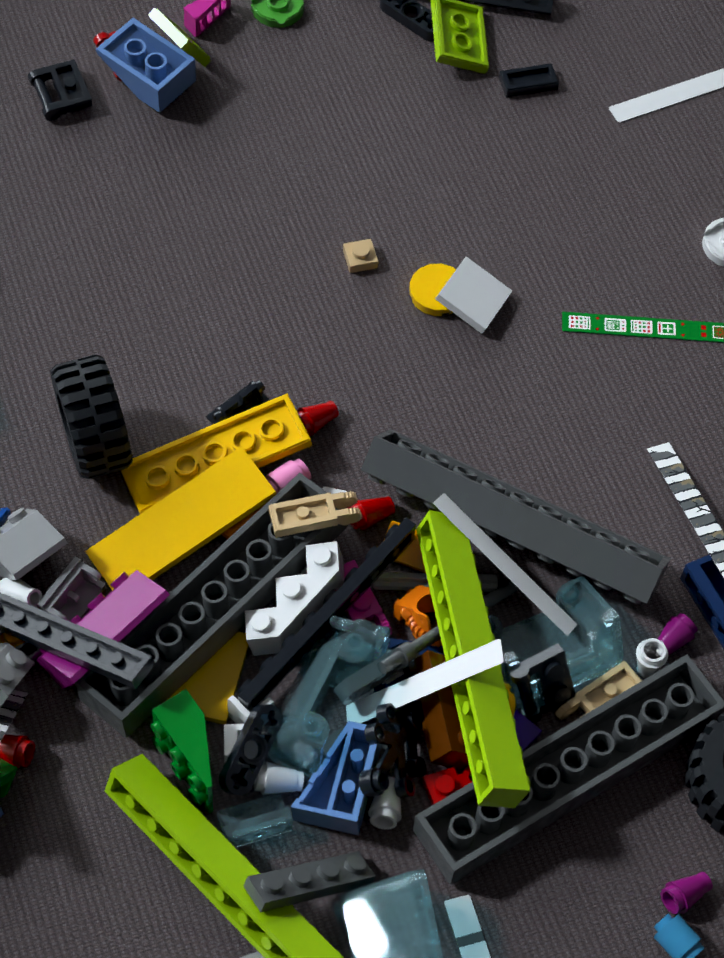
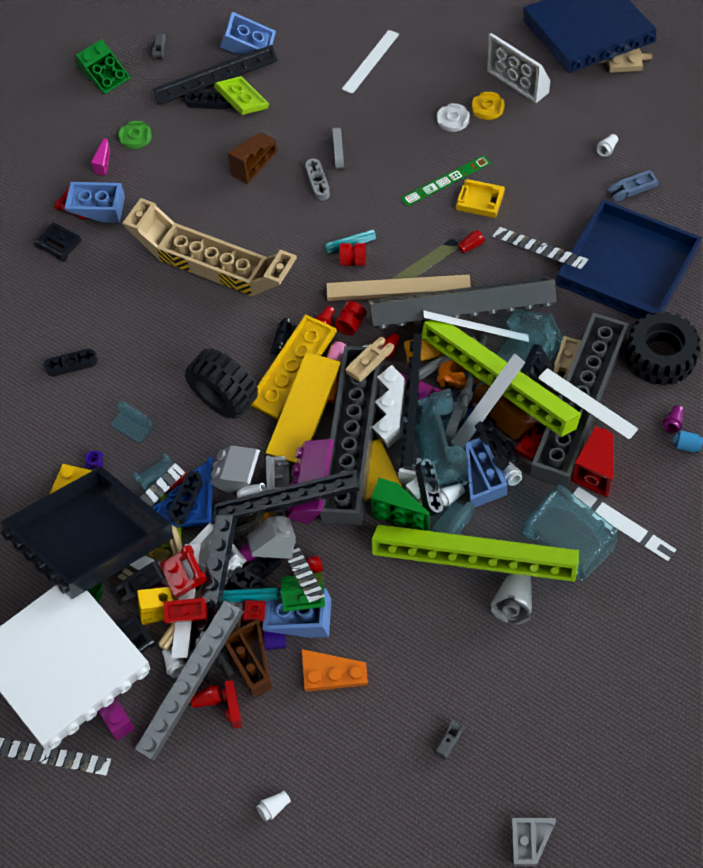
camera: 25 degrees left, 0 degrees up
(179, 37) = (100, 177): tile -> none
(224, 220) = (205, 254): none -> tan slope
(308, 881) = (507, 526): dark grey plate -> none
(345, 439) = (350, 318): none -> red wheel
(360, 255) = (281, 230): tan plate -> none
(401, 127) = (251, 156): none -> reddish brown wedge
(421, 348) = (352, 254): none -> red wheel
(427, 284) = (332, 223): yellow tile -> none
(441, 330) = (357, 238): none -> teal axle
(450, 436) = (394, 287): none -> tan tile
(469, 225) = (316, 185): none -> light grey beam
(473, 295) = (353, 214): white tile -> none
(504, 427) = (428, 260): none -> olive sticker
(513, 875) = (596, 463): none -> red slope
(528, 80) = (293, 98): black tile -> none
(530, 187) = (338, 150): none -> light grey beam
(569, 784) = (588, 403): none -> white sticker
(607, 437) = (471, 241): none -> red cone
(650, 656) = (575, 326): white cone -> none
(670, 381) = (477, 196): none -> yellow container
(677, 632) = (576, 309): magenta cone -> none

